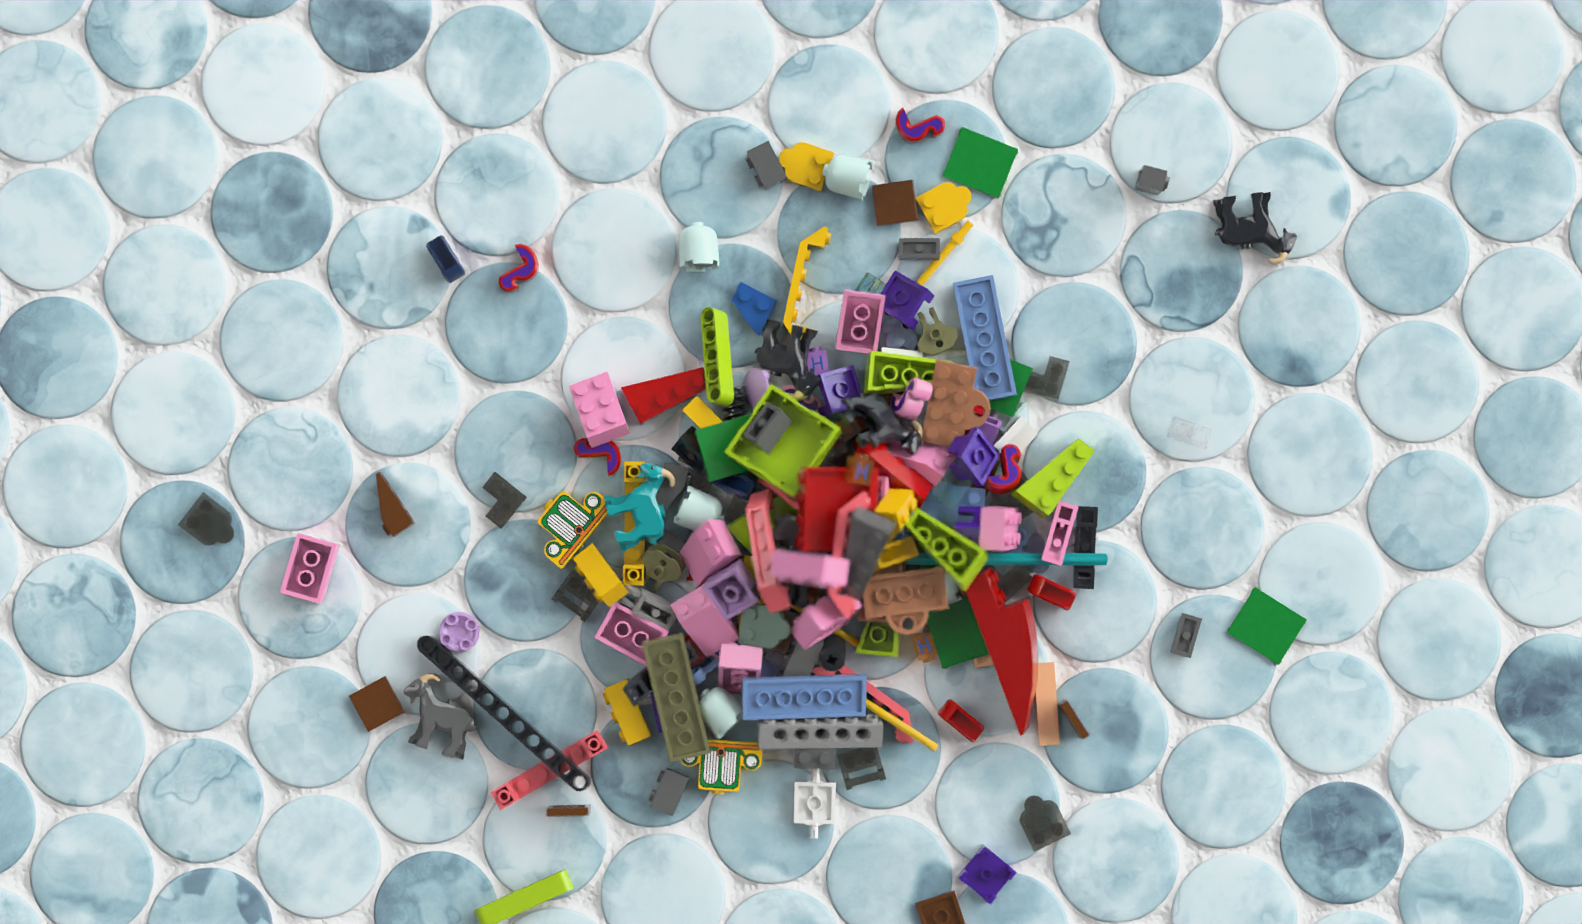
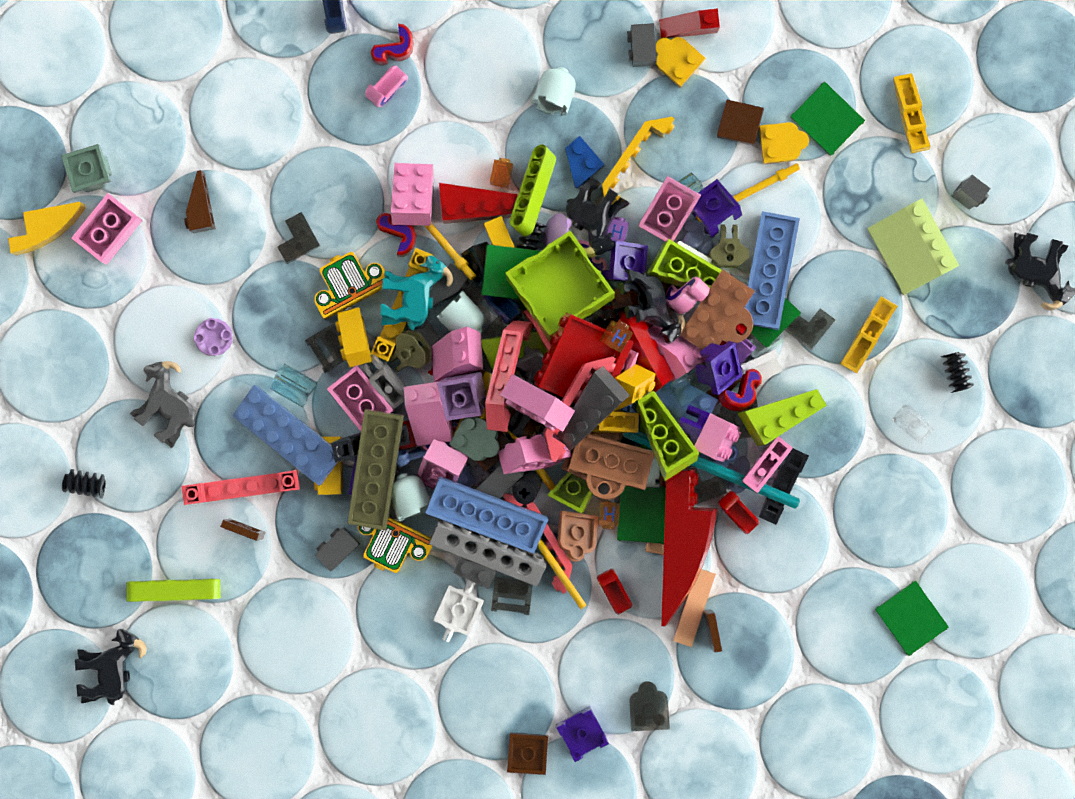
camera: 15 degrees right, 0 degrees up
(208, 521) = (38, 153): clear smoke plate -> none
(246, 591) = (45, 226): none -> yellow slope
(265, 517) = (87, 169): none -> sand green panel
(376, 703) = (117, 369): reddish brown tile -> none
(392, 830) = (84, 484): none -> black piece
(493, 709) = (214, 416): black beam -> none
(528, 312) = (386, 87): none -> bright pink animal
(558, 647) = (293, 385): none -> clear light blue panel
(572, 699) = (286, 434): none -> medium blue plate
(674, 458) = (459, 261): none -> yellow bar
(678, 351) = (501, 173): none -> clear orange brick
(767, 428) = (551, 267): dark grey brick -> none
(804, 125) = (690, 24): none -> slope
(848, 175) = (710, 82): light aqua cylinder -> none
(900, 679) = (577, 534): none -> nougat plate
(918, 131) = (785, 69): red animal -> none
(919, 248) = (745, 170): dark grey plate -> none
(1061, 123) = (911, 113): none -> yellow slope
(1108, 361) = (868, 334): none -> yellow slope
(1116, 257) = (913, 246): none -> yellowish green slope
(1186, 635) = (839, 597): dark grey plate -> none
(1211, 363) = (957, 371): none -> black piece

